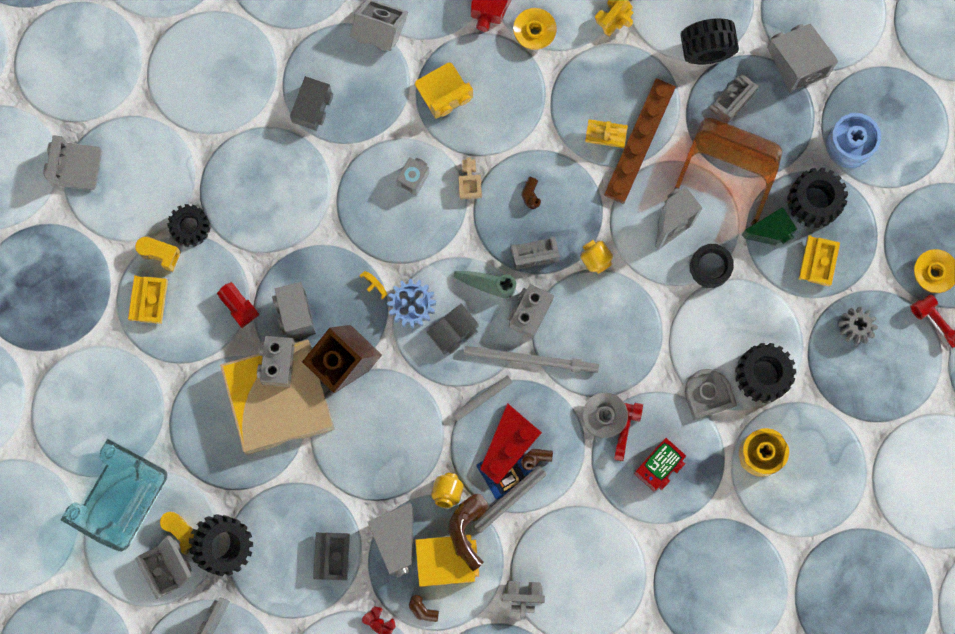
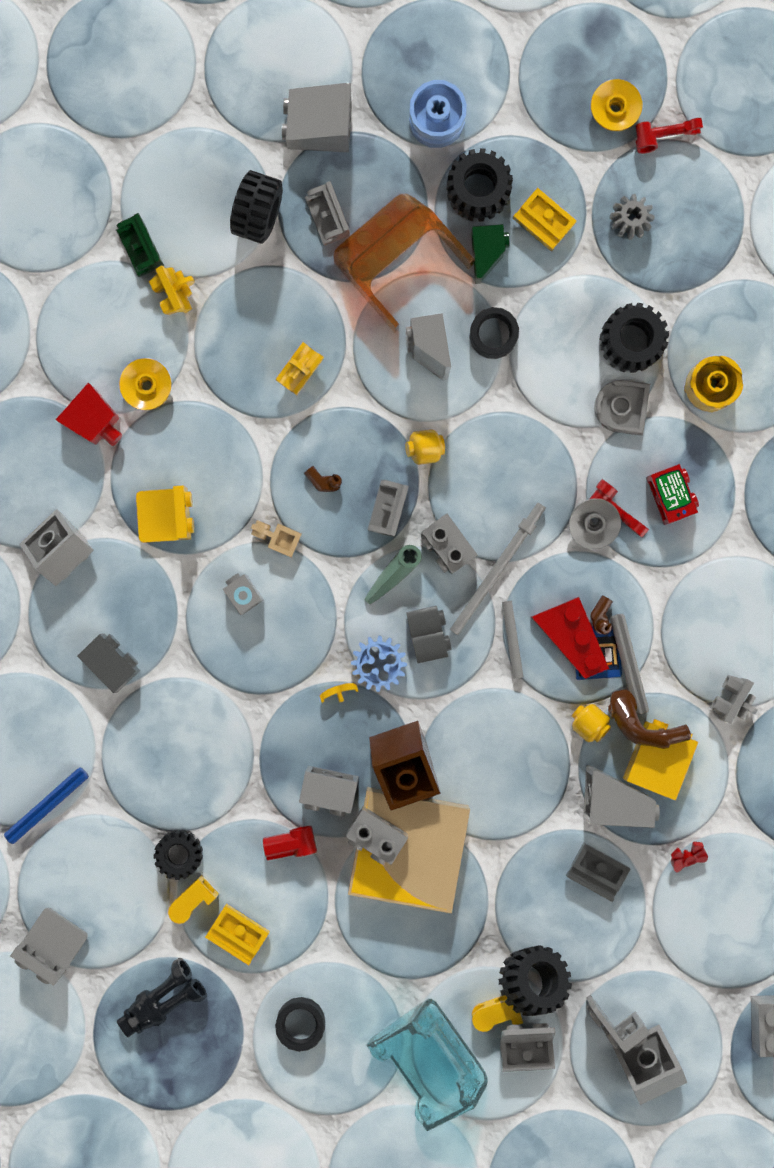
camera: 60 degrees left, 10 degrees up
(57, 259) = (149, 1012): none -> black piece
(85, 372) = (294, 1043): none -> black tyre
(179, 111) = (46, 805): none -> blue axle
(420, 610) = (696, 809): reddish brown arm -> none
(639, 141) = (322, 336): dark orange plate -> none

